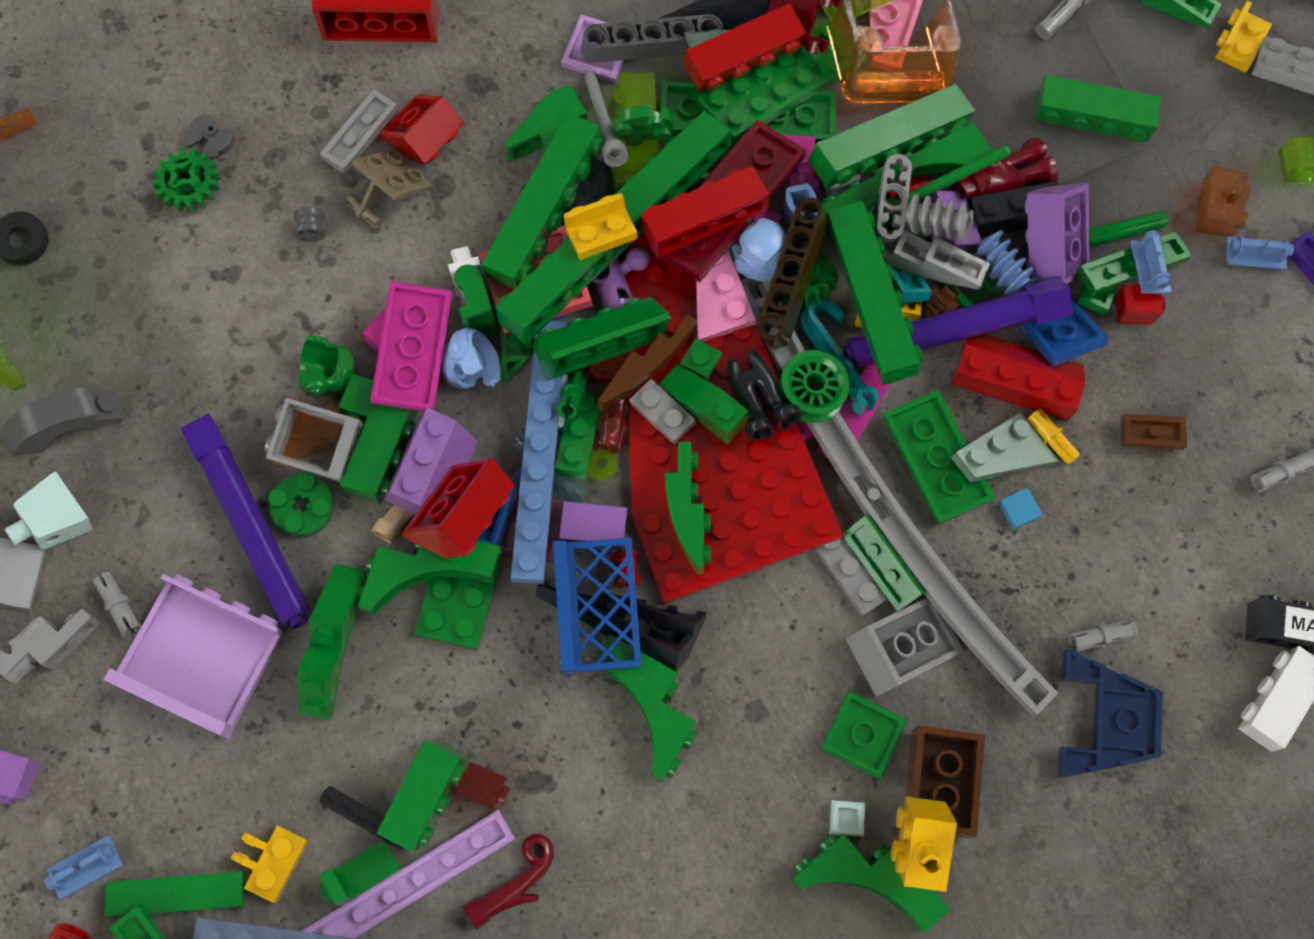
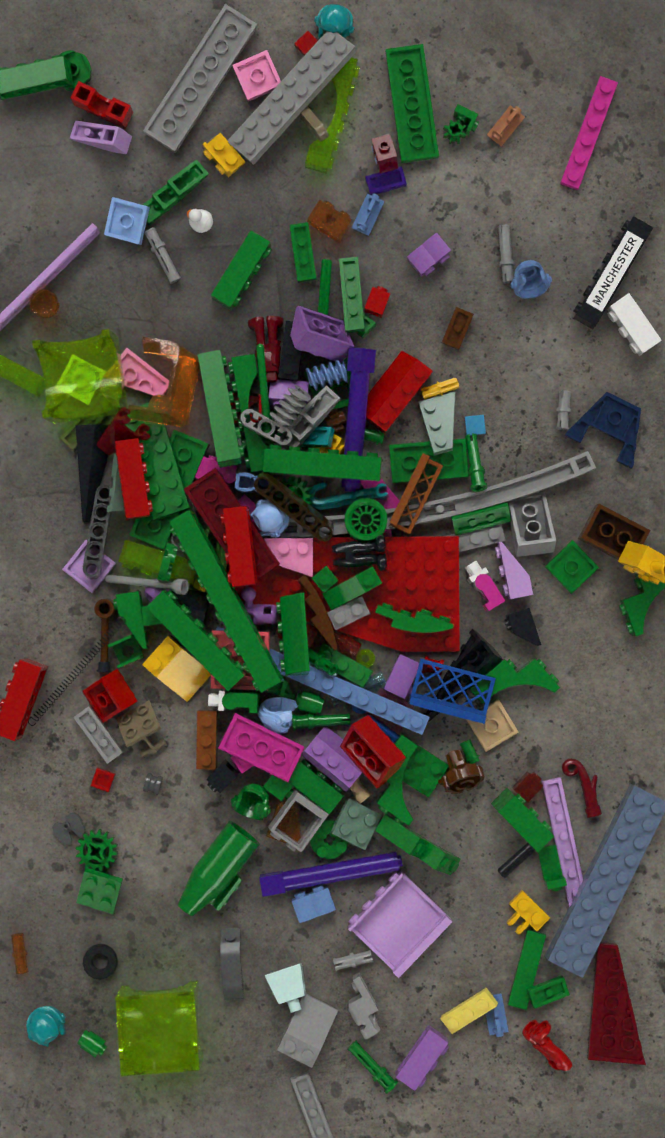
camera: 65 degrees left, 15 degrees up
(78, 817) = (469, 1010): none -> light yellow plate
(126, 201) = (99, 890): none -> green plate
(191, 512) = (313, 904): none -> medium blue brick
(203, 350) = (217, 870): none -> green piece
(295, 159) = (103, 779): none -> red tile
(336, 533) = (355, 824): none -> sand green plate
(348, 309) = (222, 776): none -> black brick
(415, 267) = (207, 739): none -> dark orange arch
(467, 668) = (460, 775): none -> reddish brown piece
(475, 85) = (76, 671): none -> black piece
(477, 416) = (310, 721): none -> green pin
(488, 199) = (177, 668): none -> yellow slope
(504, 118) = (118, 648): none -> green piece
(505, 404) = (309, 702): none -> green brick
(508, 674) = (469, 752): none -> green pin
(540, 73) = (104, 665): none -> reddish brown piece
(562, 700) = (497, 727): none -> tan tile
(599, 226) = (231, 613): yellow bracket -> none
(740, 687) = (523, 626): none -> black slope
(788, 591) = (484, 585): none -> dark pink hips
(809, 652) = (516, 578): none -> lavender slope
(847, 818) = (612, 593): light aqua tile -> none
(886, 436) = (406, 497): none -> dark orange fence
(942, 370) = (374, 436): none -> green pin
(955, 527) = (475, 471): none -> green pin
(1065, 337) = (387, 354): blue tile -> none
(1141, 32) = (200, 220): none -> white animal
(1151, 264) = (359, 288): medium blue hinge -> none
(1161, 182) = (303, 252): none -> green plate
(1242, 354) = (429, 254): none -> medium lavender brick
(1277, 511) = (530, 280): none -> medium blue helmet

